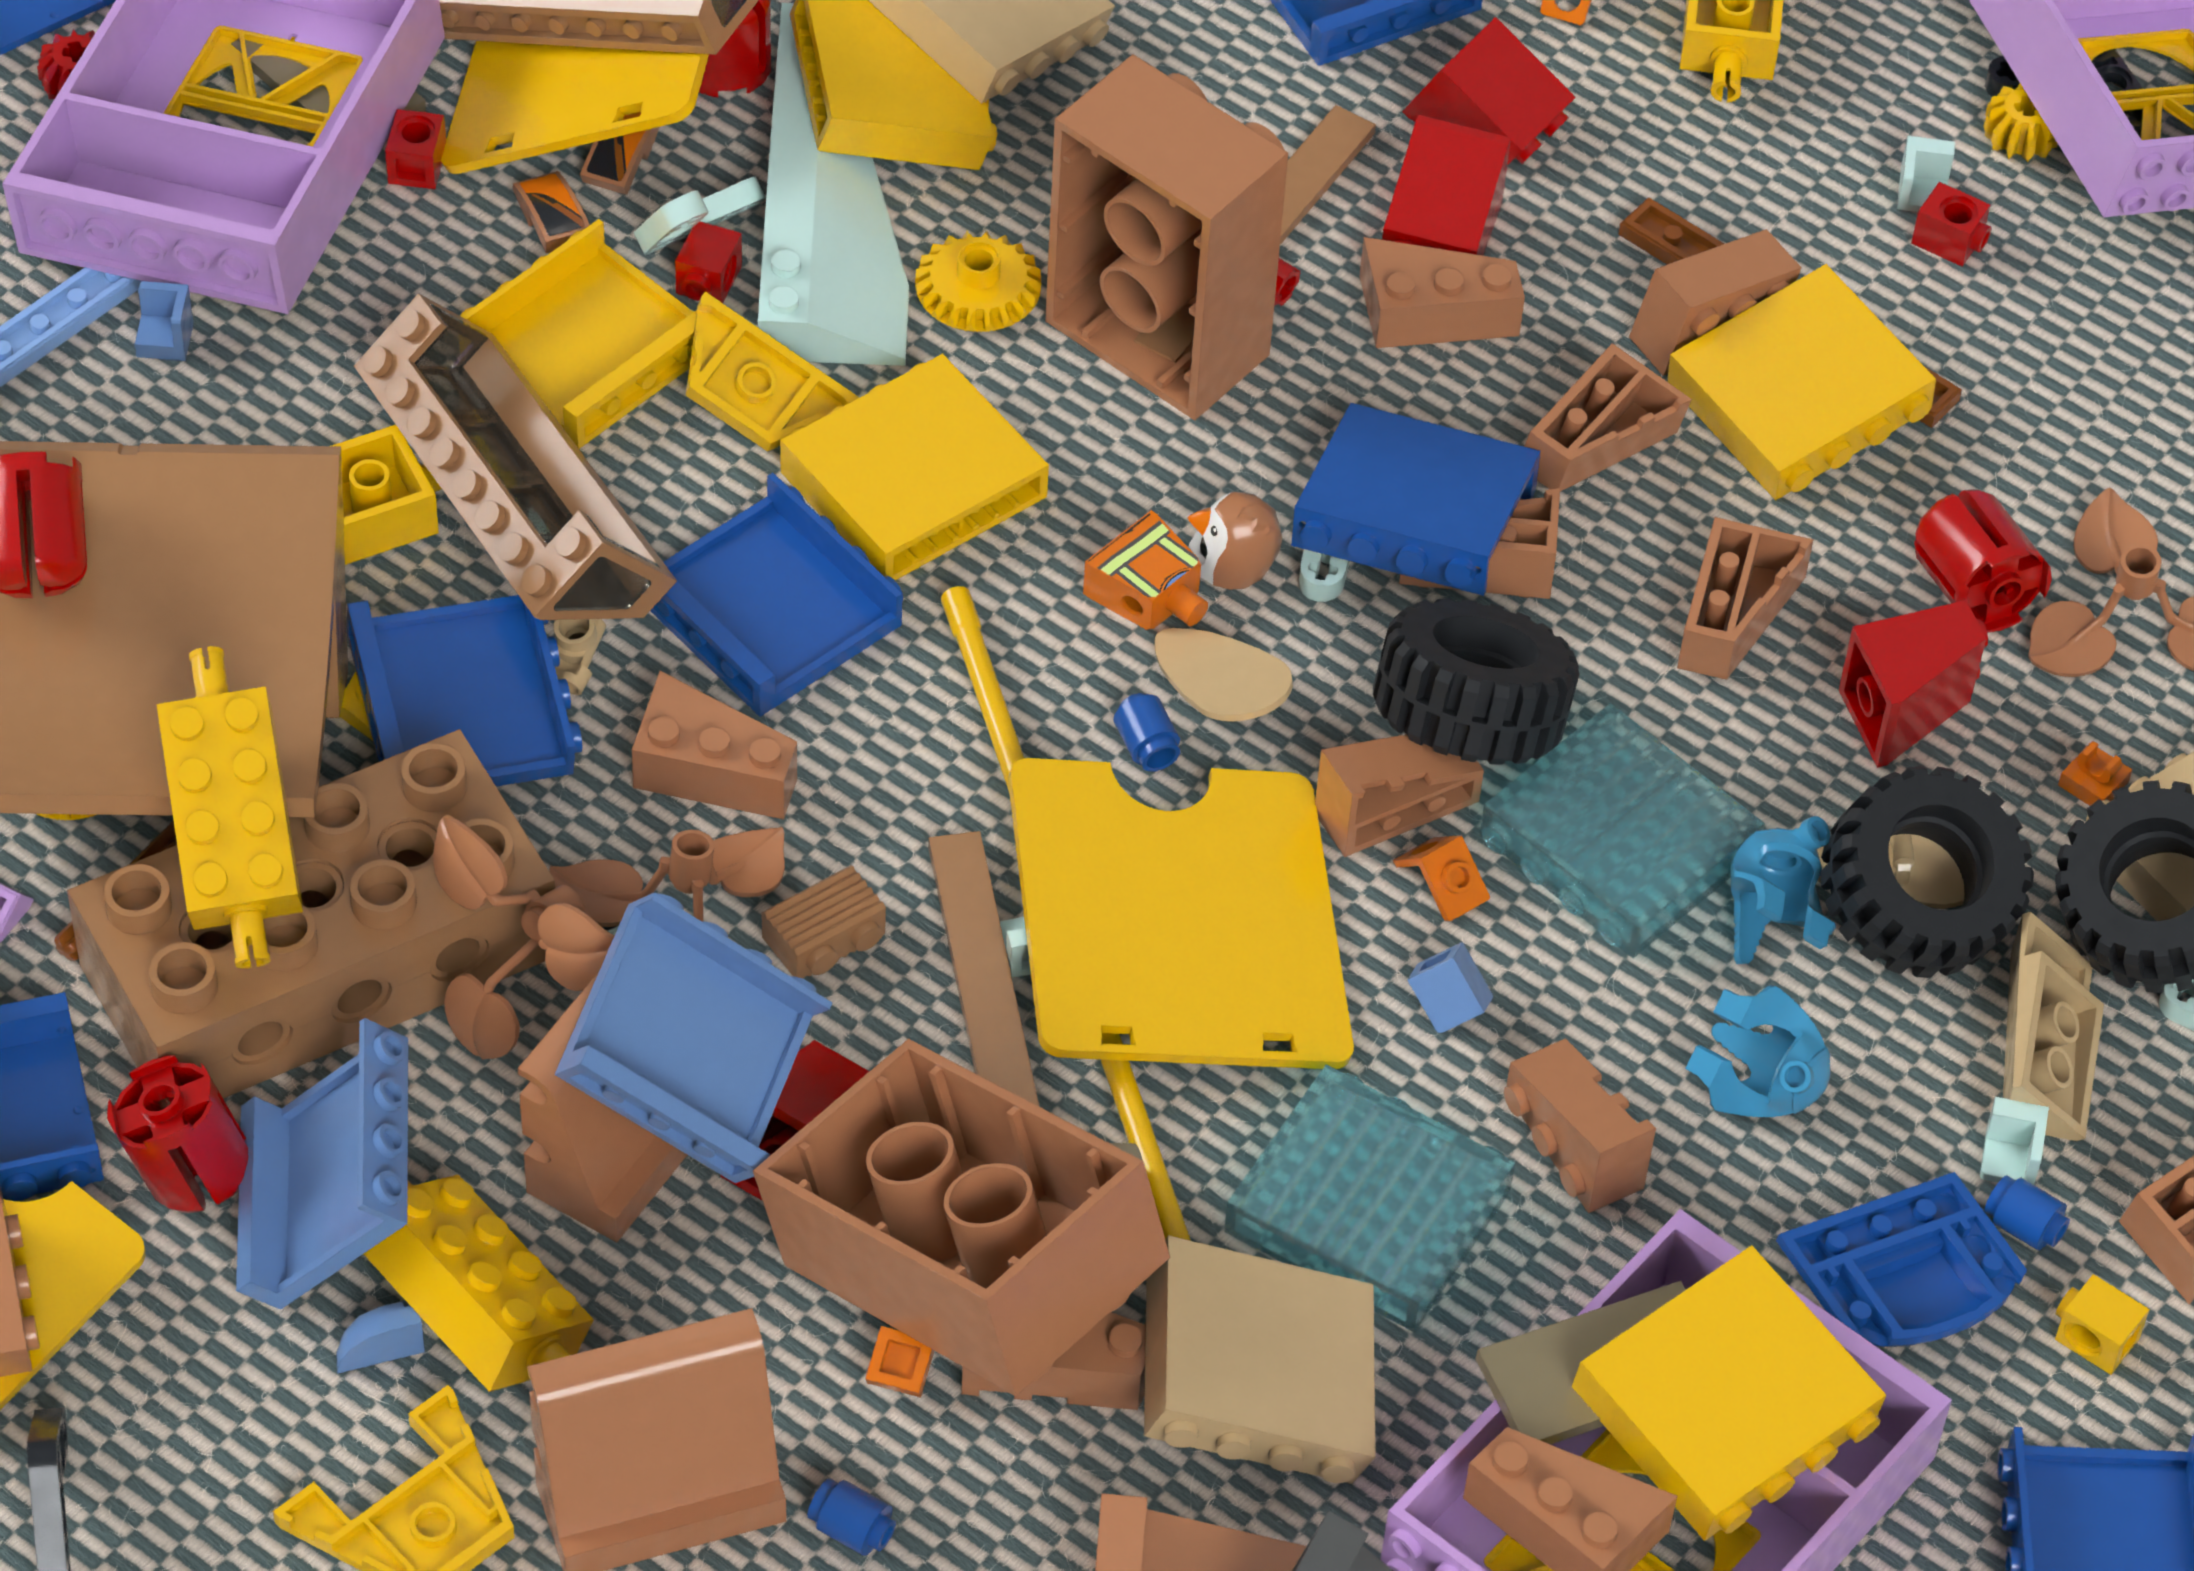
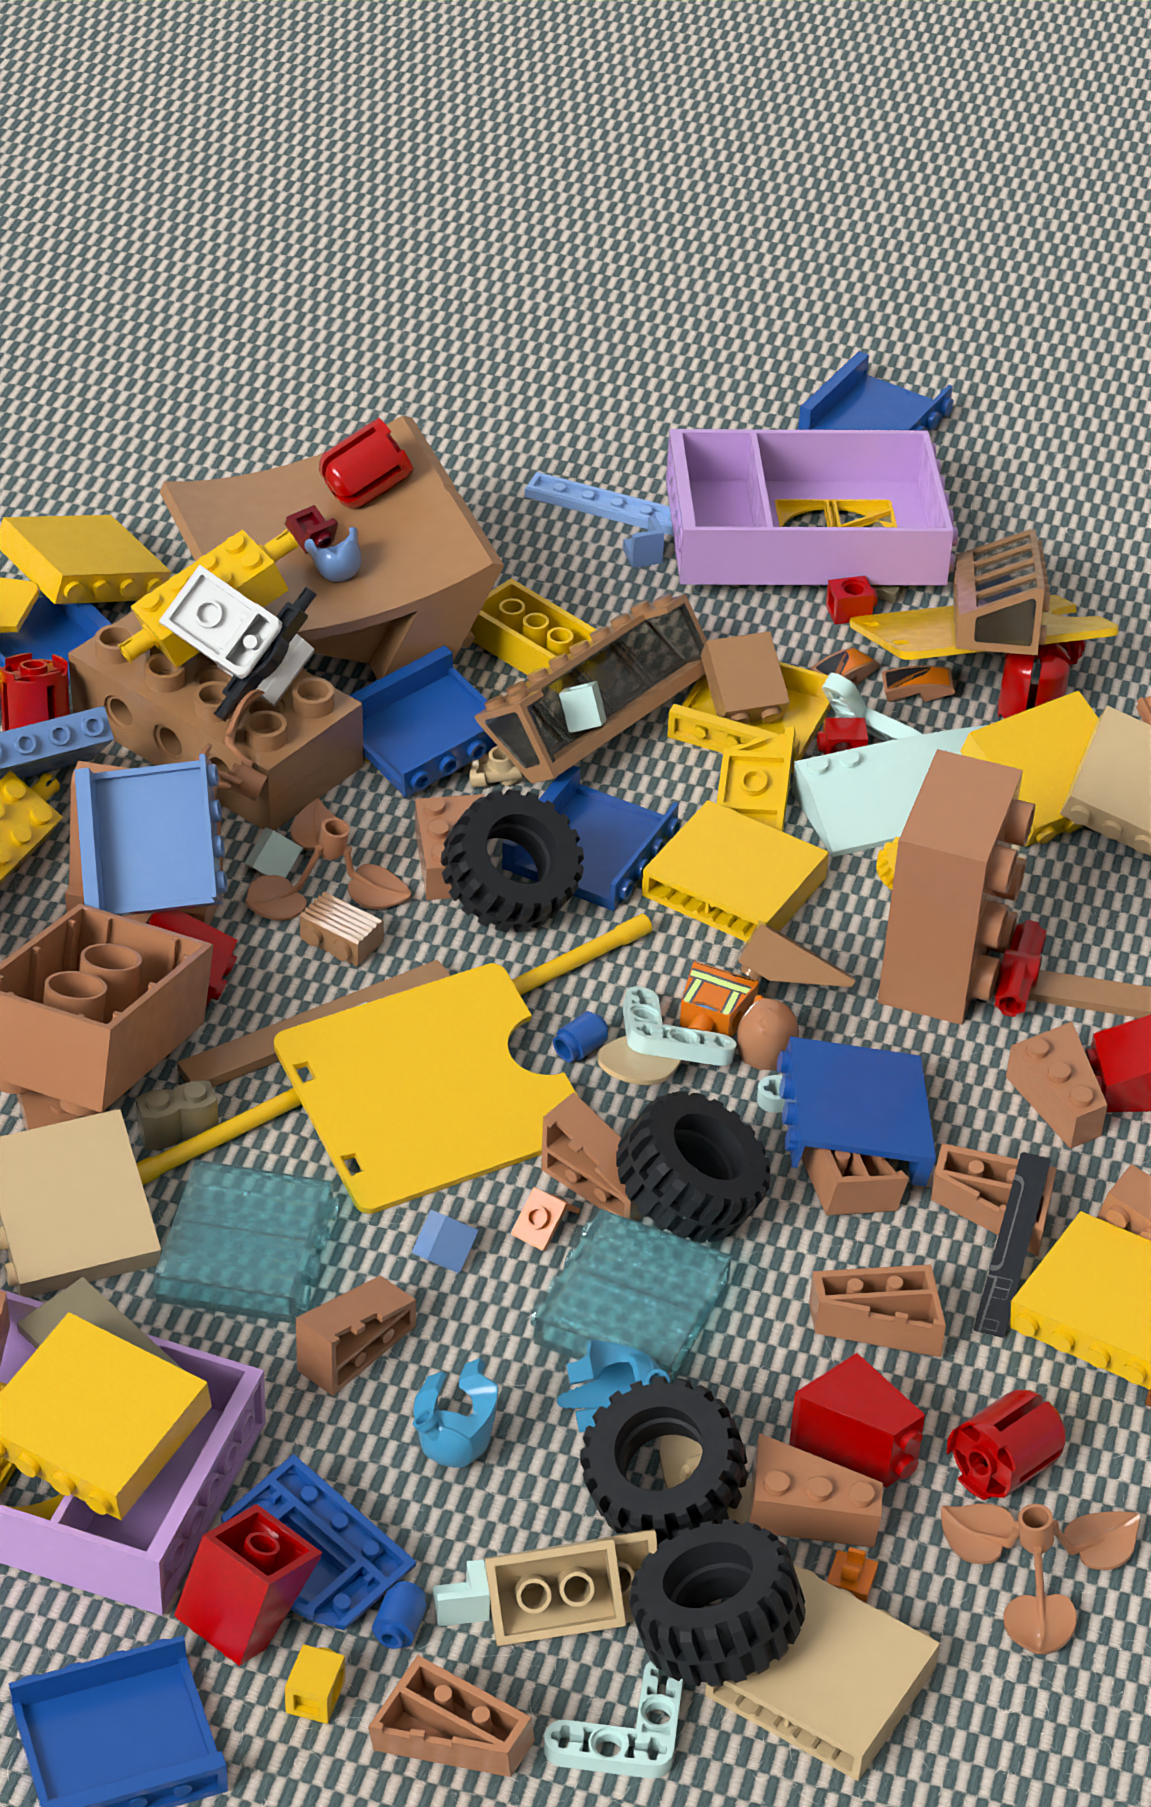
camera: 70 degrees right, 10 degrees down
(113, 645) = (311, 525): none -> dark red bracket
(196, 621) = (337, 562): none -> medium blue hair
(351, 795) = (241, 637): none -> white piece
(552, 491) = (583, 706): none -> light aqua panel
(560, 312) = (745, 678): none -> medium nougat brick
(833, 677) = (536, 829): none -> black tyre
(1122, 650) = (650, 1036): none -> light aqua beam
(1128, 470) = (784, 960): none -> medium nougat slope
(1692, 435) = (1012, 1244): none -> black sticker
(1973, 1332) = (245, 1582): none -> red slope
(2002, 745) = (812, 1496): none -> nougat wedge

